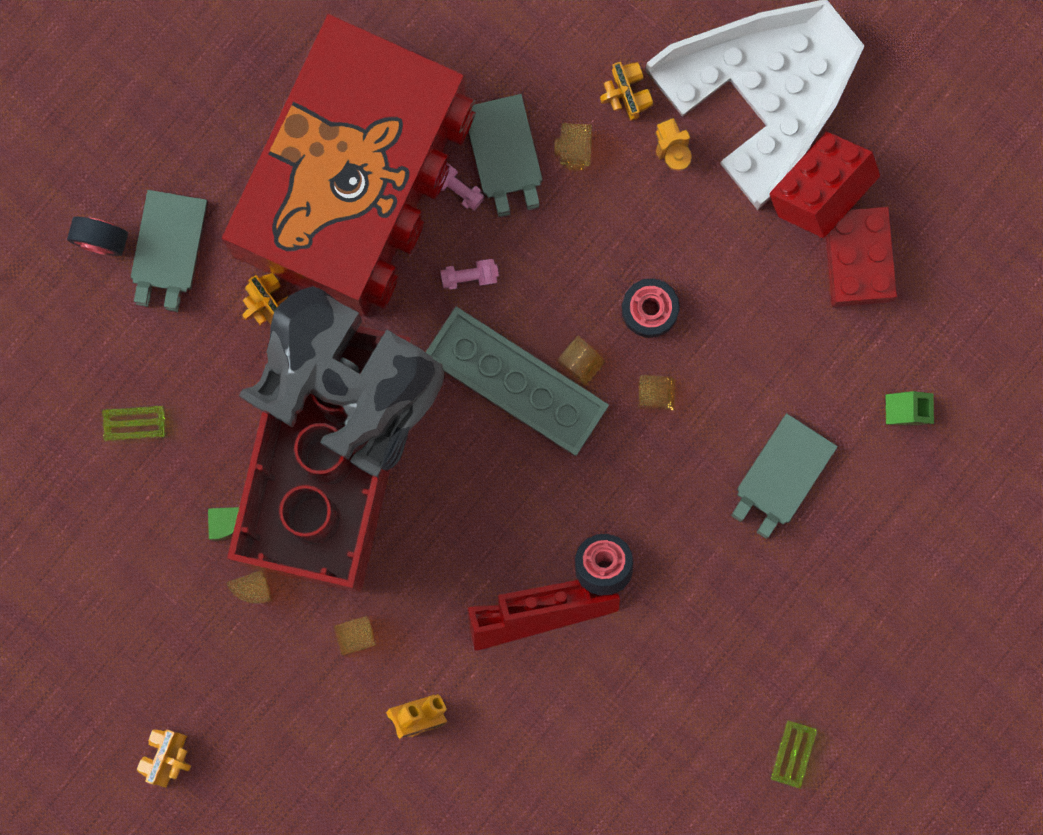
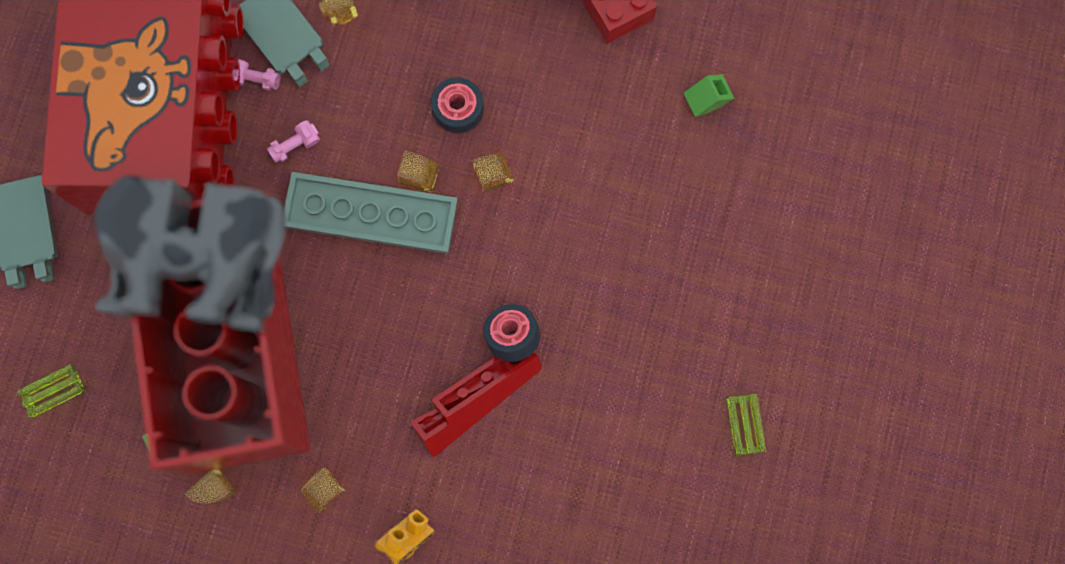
camera: 25 degrees left, 5 degrees down
(783, 473) = (629, 193): sand green tile -> none

